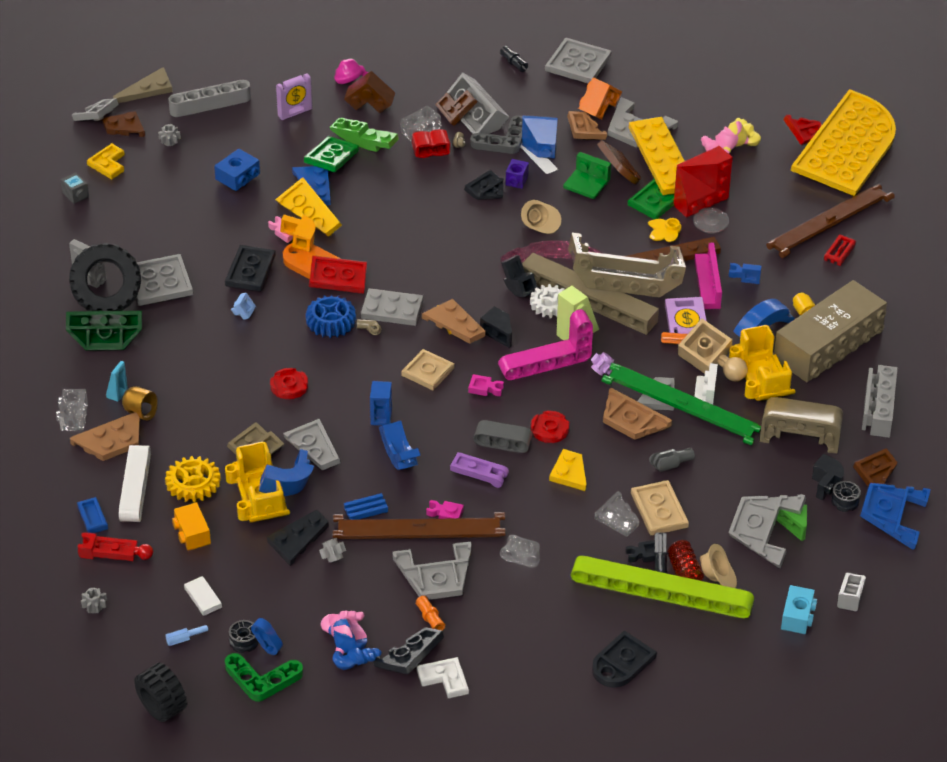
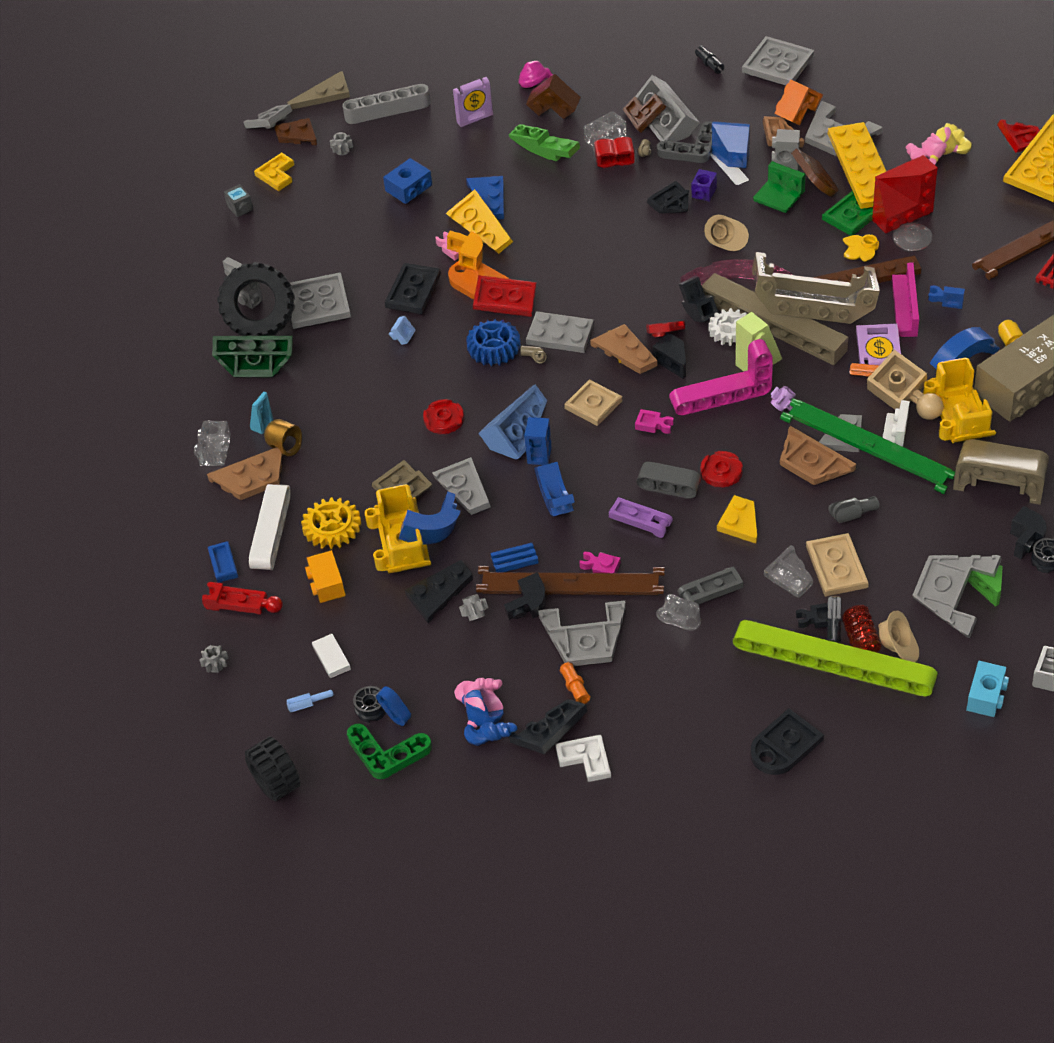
camera: 10 degrees right, 5 degrees up
(331, 154) = (508, 163): green tile -> none
(352, 394) = (507, 430): none -> medium blue wedge
(386, 541) = (532, 598): none -> black brick
(485, 303) = (660, 328): none -> red wing
(549, 527) = (711, 586): none -> dark grey plate
(591, 136) = (784, 144): none -> light grey brick

